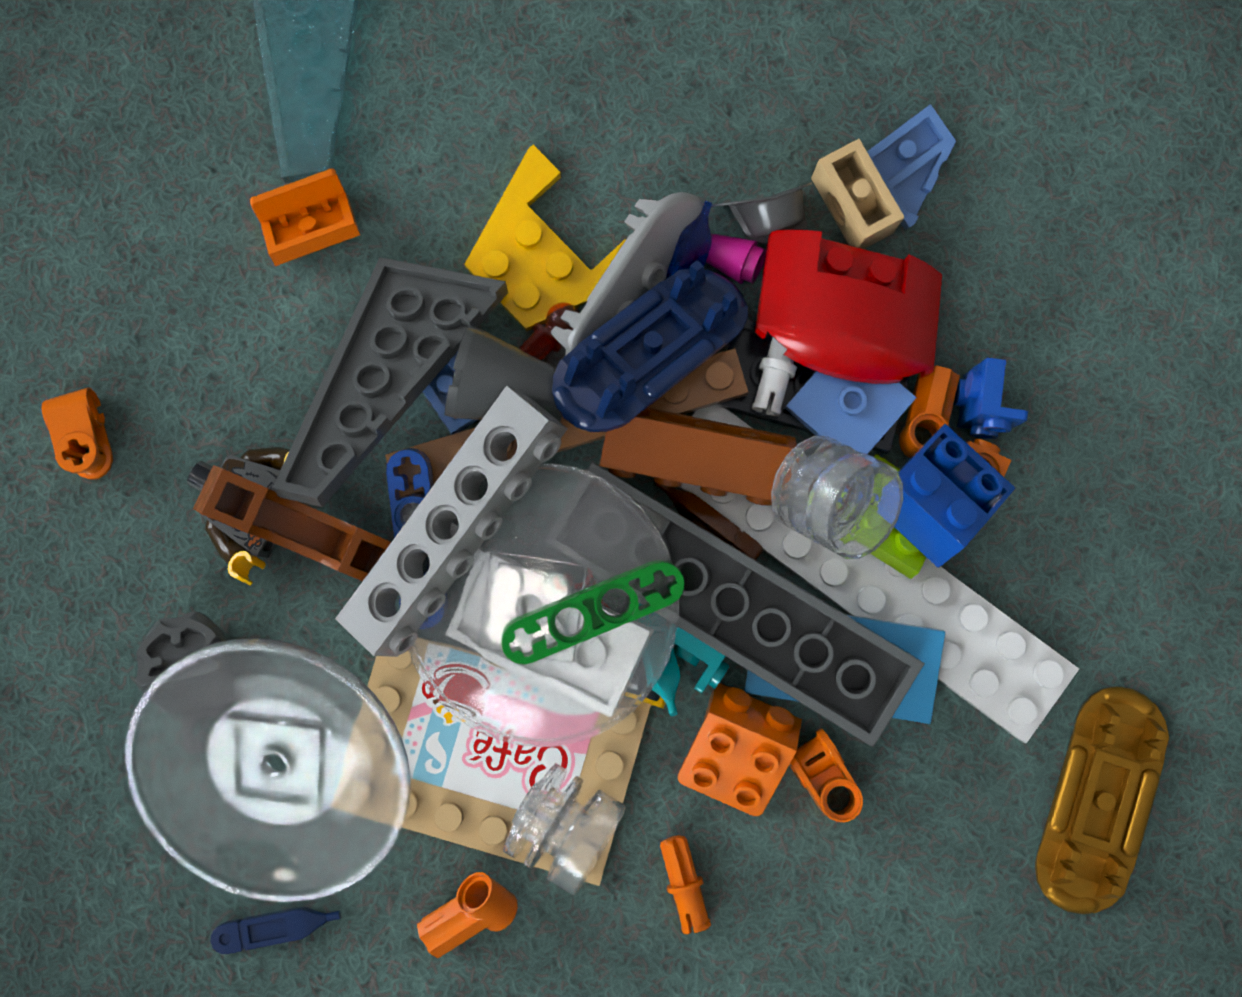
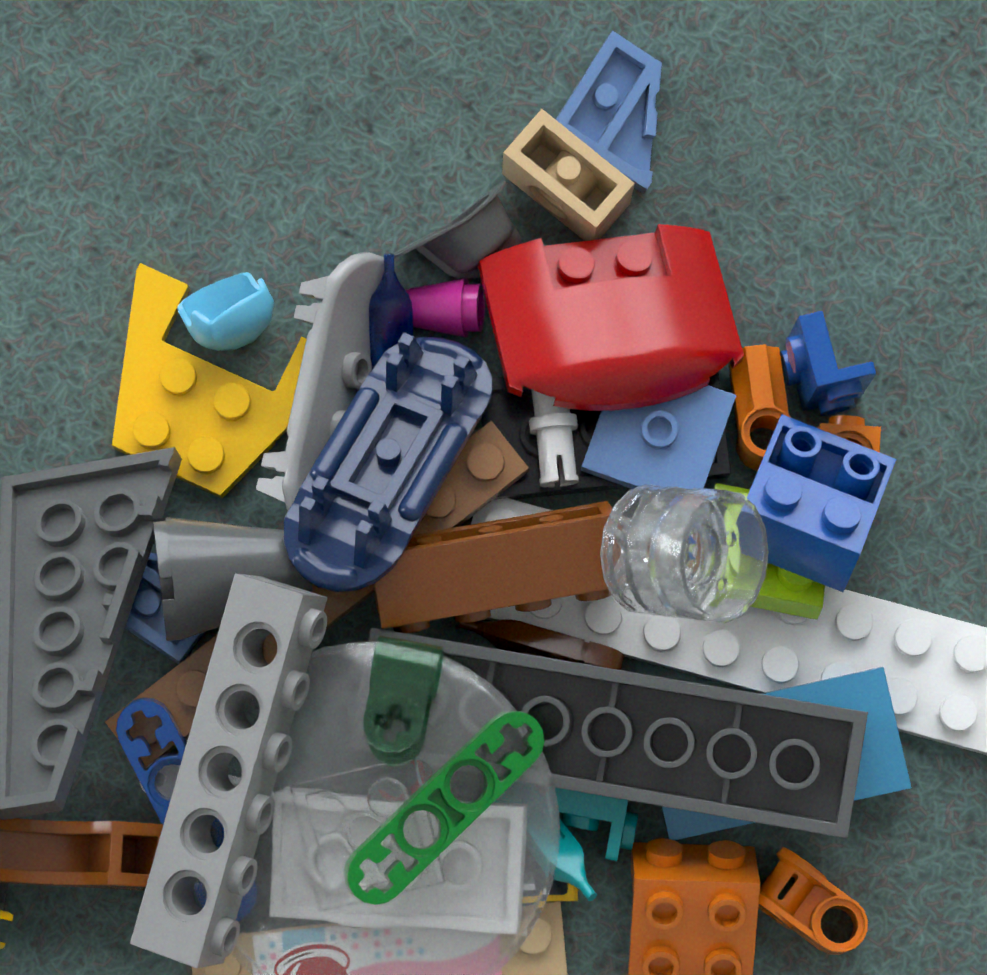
camera: 25 degrees left, 5 degrees down
(542, 340) = (247, 501): clear red axle -> none
(580, 202) = (228, 312): none -> medium azure hair
(597, 515) = (401, 688): none -> clear green piece

